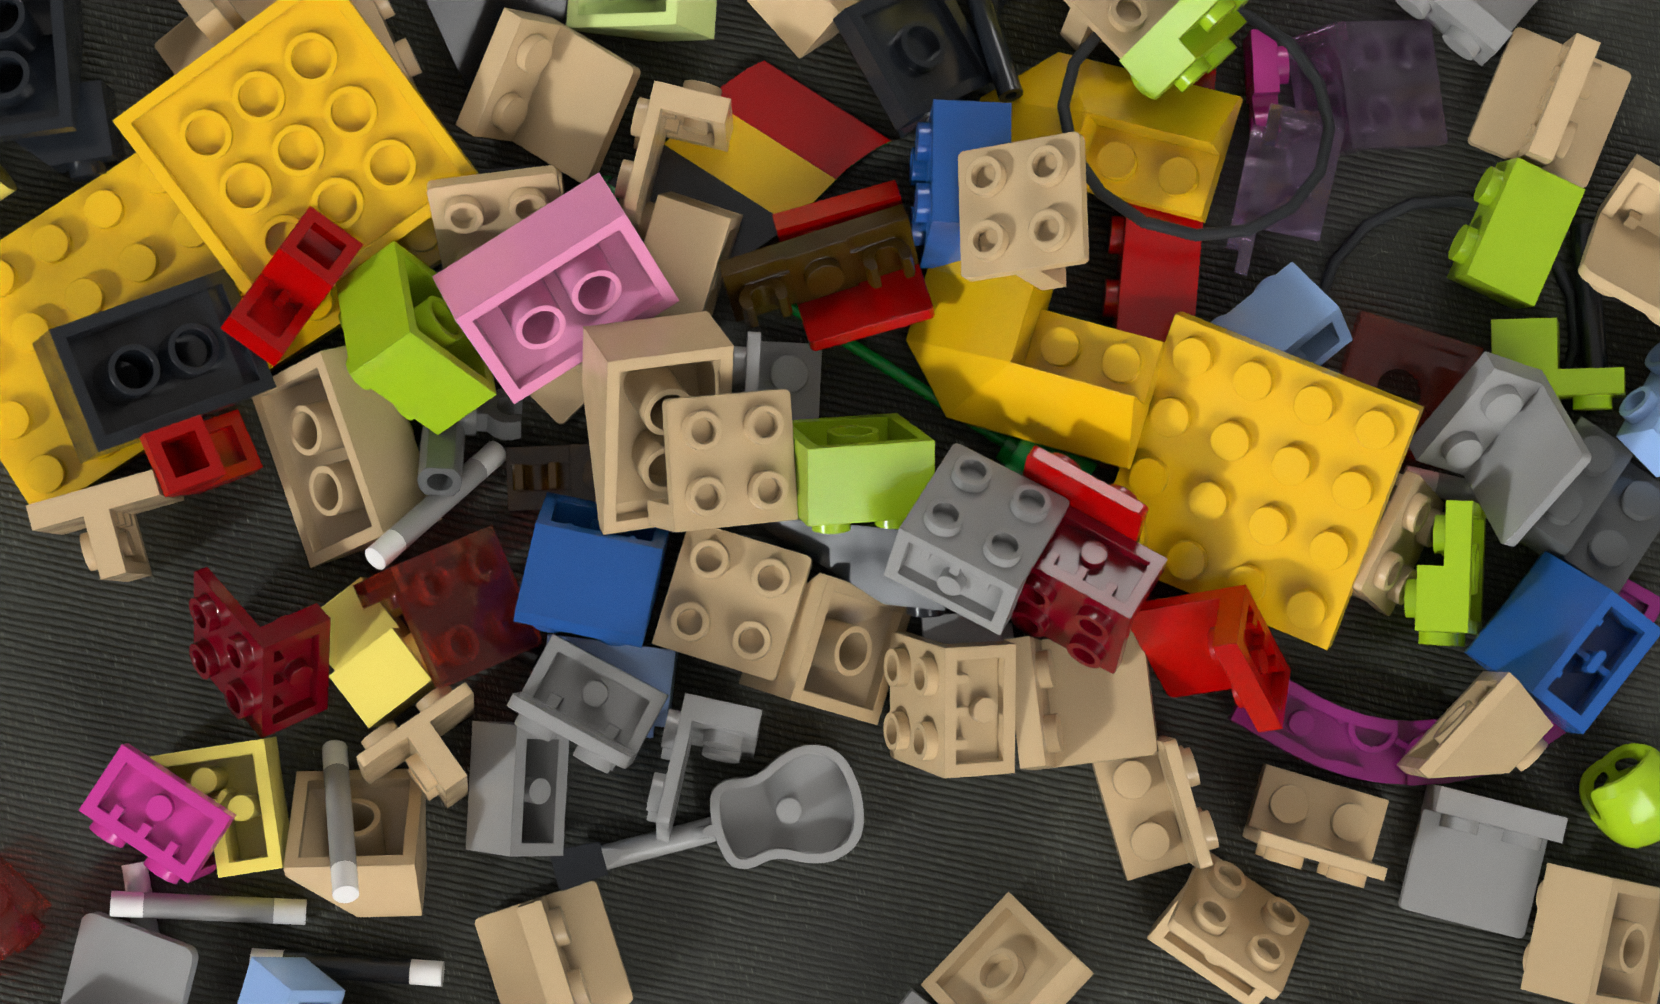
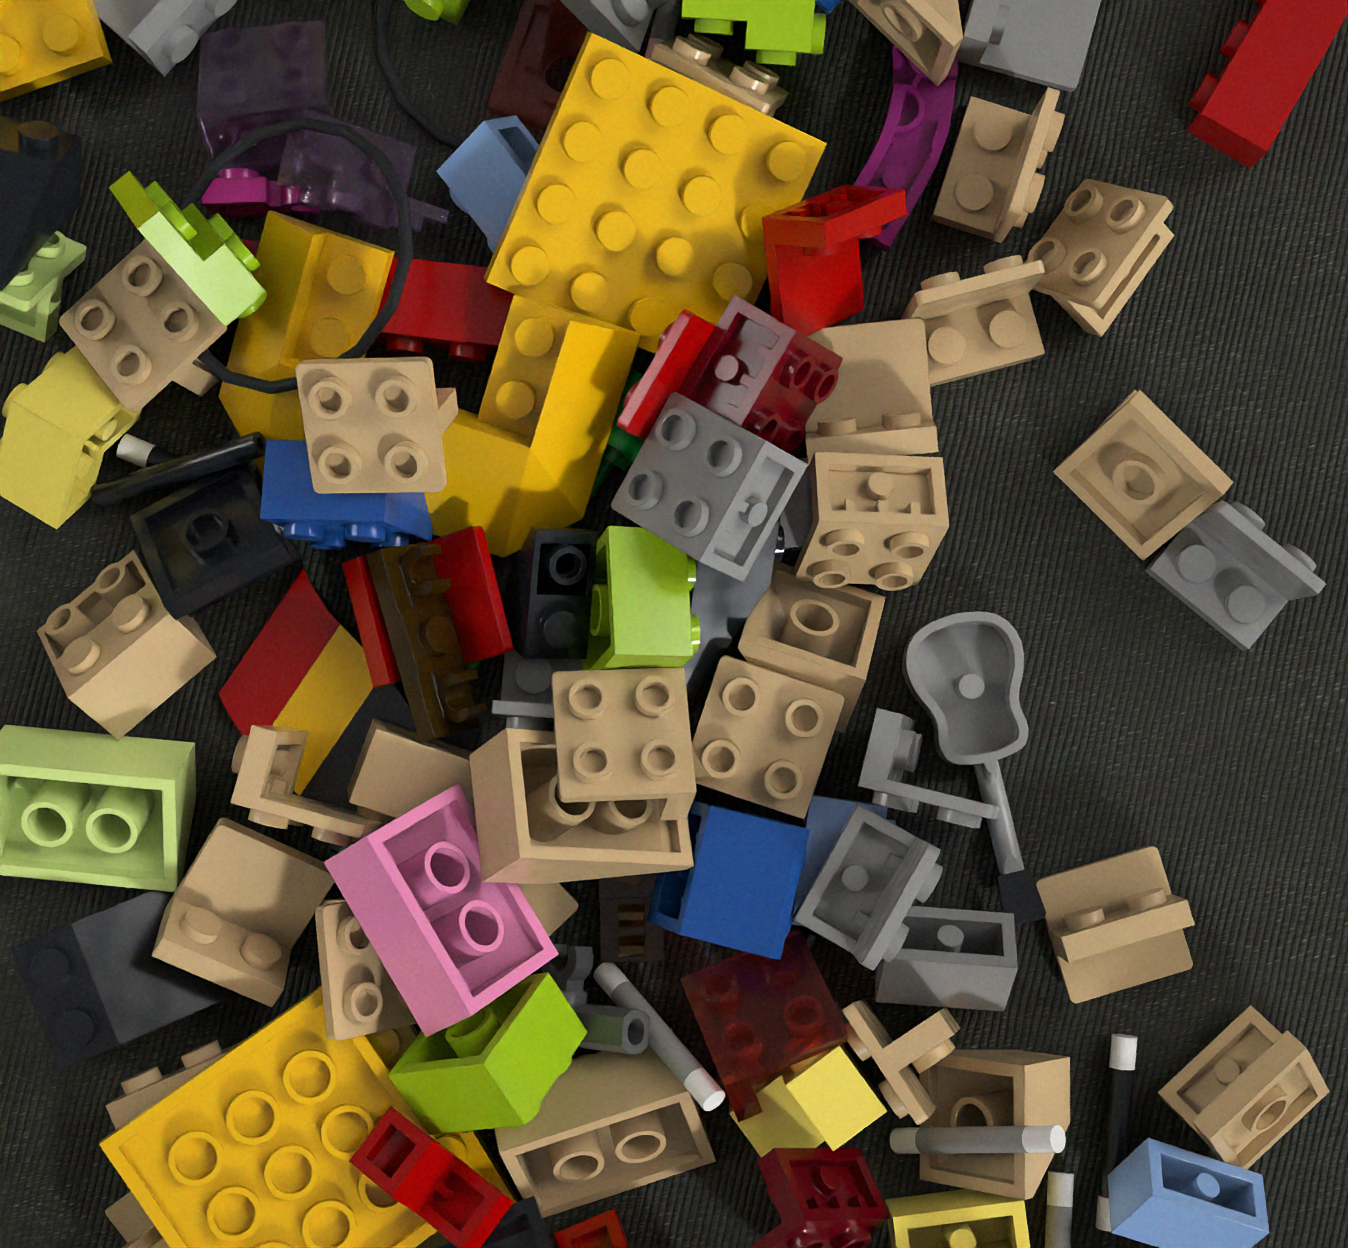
camera: 85 degrees left, 0 degrees up
(868, 388) = (552, 593): none -> black slope

